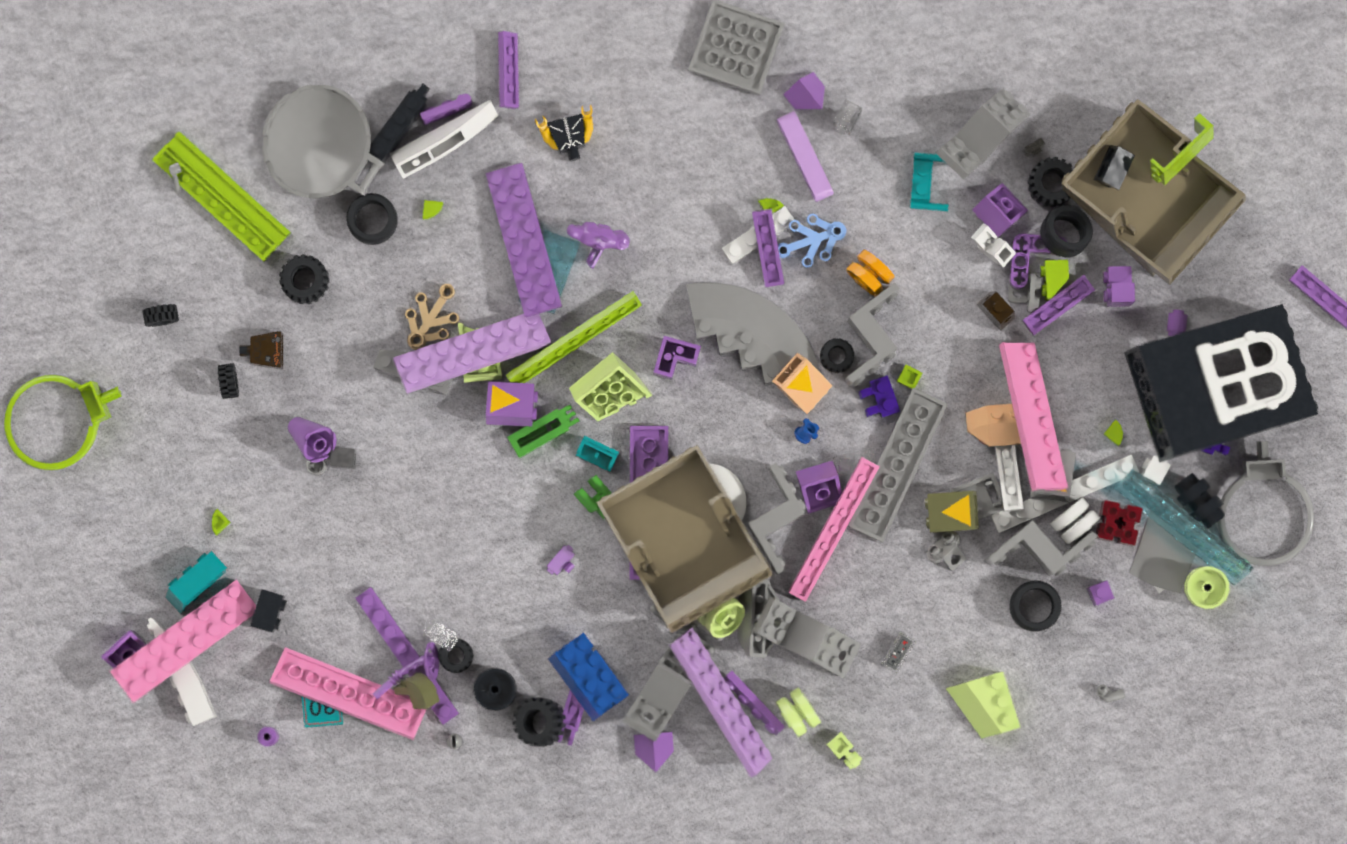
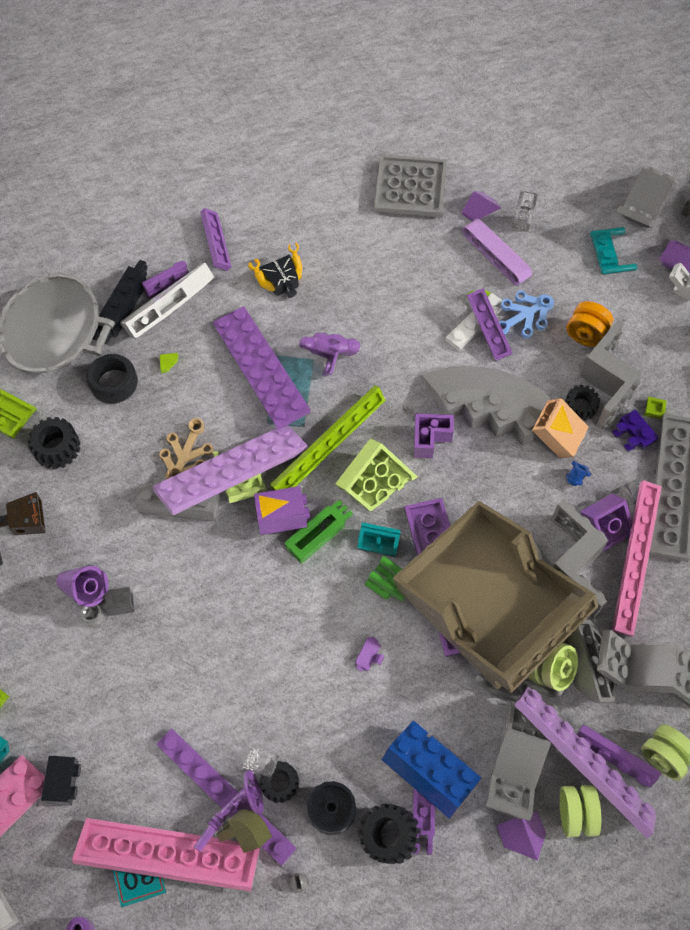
camera: 15 degrees left, 20 degrees down
(703, 741) = (580, 811): none -> yellowish green wheel

